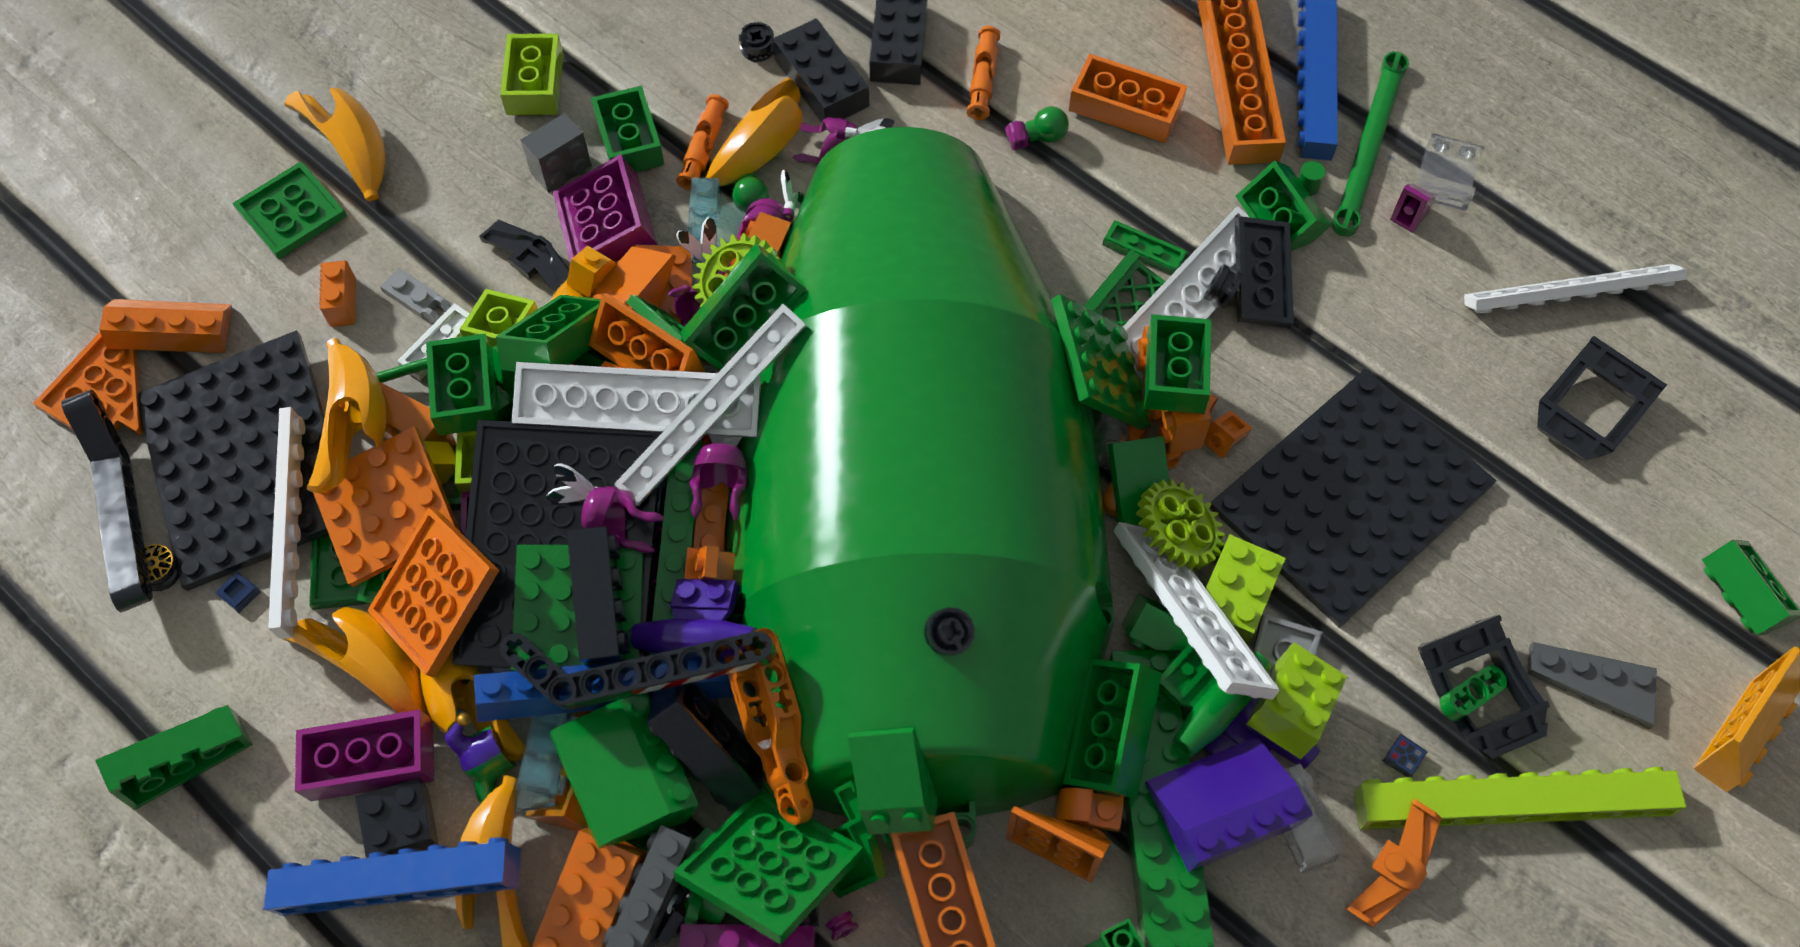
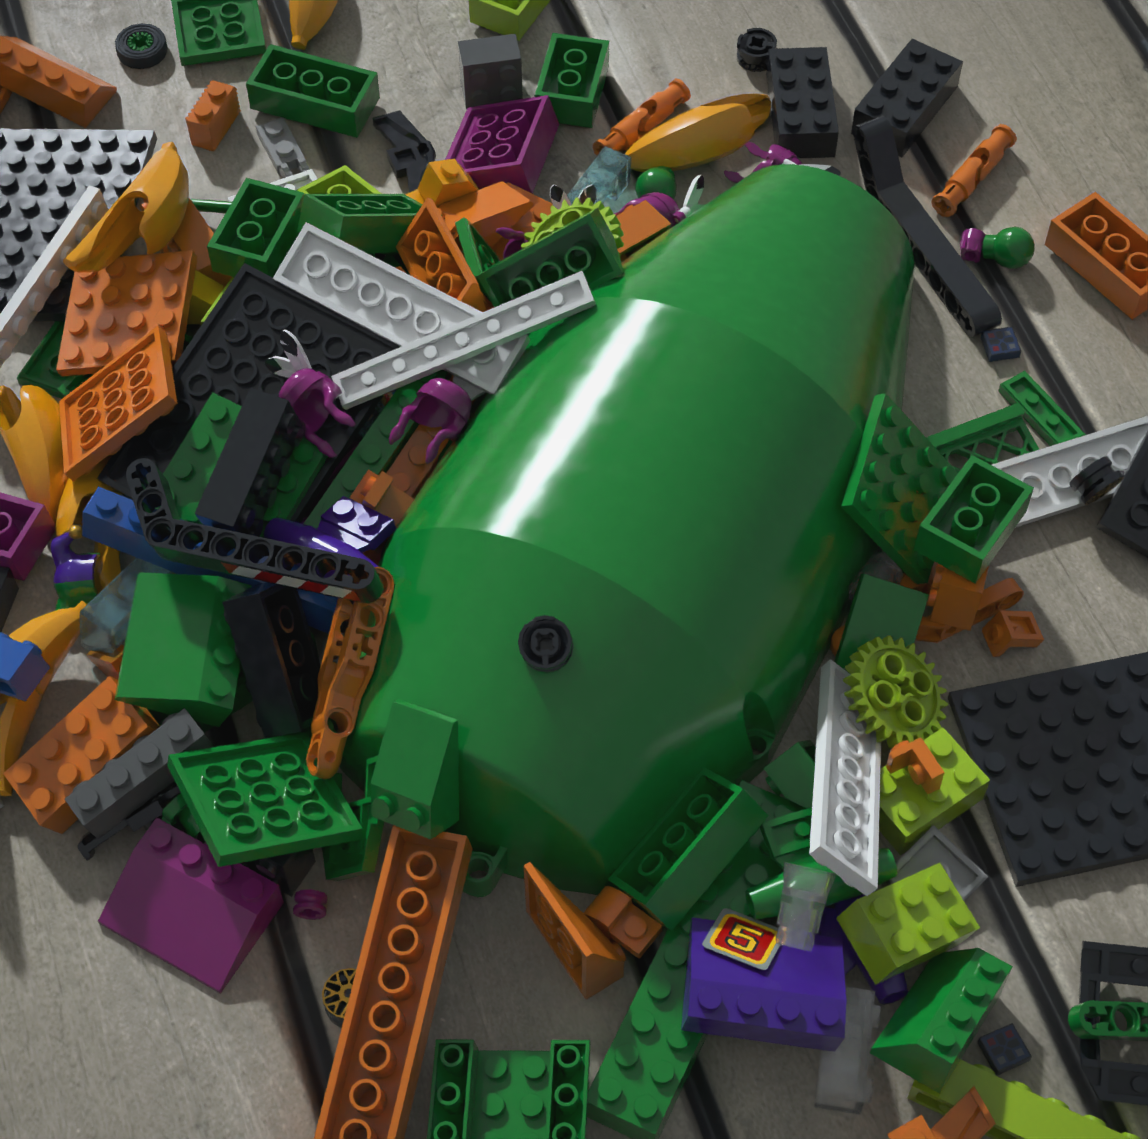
camera: 30 degrees right, 5 degrees down
(219, 252) = (131, 46): none -> black bush
(413, 233) = (313, 90): none -> green brick
(999, 157) = (931, 249): none -> black beam
(1084, 206) = (1000, 344): none -> dark blue tile
(1195, 777) = (743, 939): none -> sticker
(1227, 729) = (802, 905): none -> clear plant
(1237, 572) = (920, 762): none -> orange bracket
(1360, 758) = (942, 1015): none -> green slope

